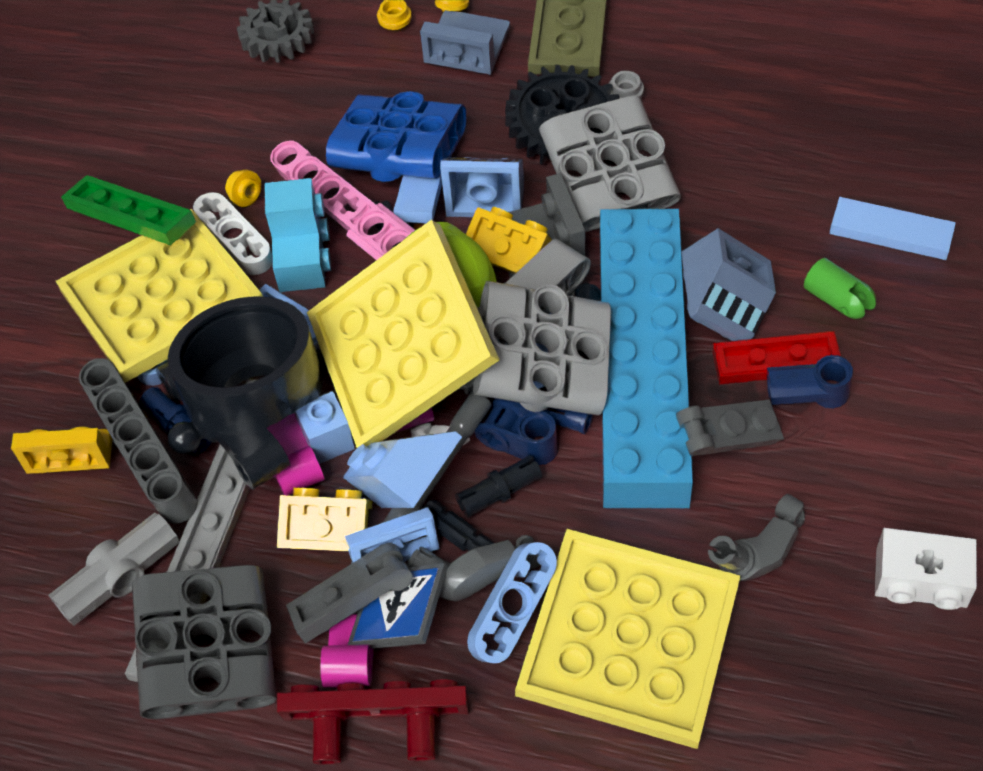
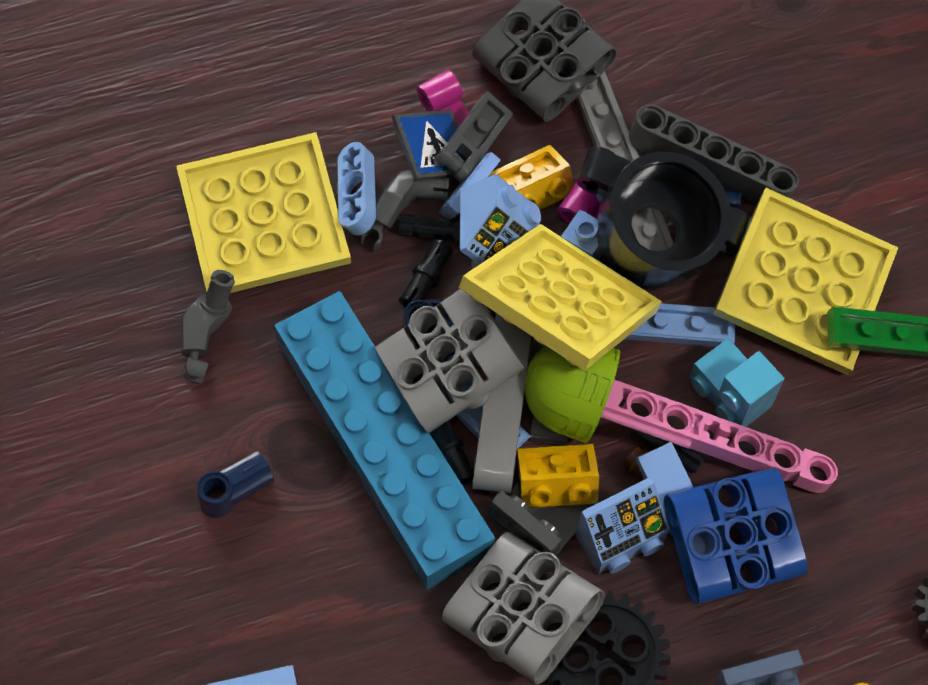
camera: 140 degrees right, 10 degrees up
(63, 449) = (763, 123): yellow bracket -> none
(113, 568) = (649, 68): light grey piece -> none
(230, 219) = (817, 369): white beam -> none
(243, 187) = (830, 419): yellow plate -> none
(352, 701) = (392, 89): dark red plate -> none
(727, 285) = (343, 522): sand blue slope -> none
(729, 427) = (273, 393): dark grey plate -> none
(750, 358) = (274, 506): red tile -> none
(840, 289) = (252, 597): bright green piece -> none
(948, 565) = (64, 387): white brick -> none

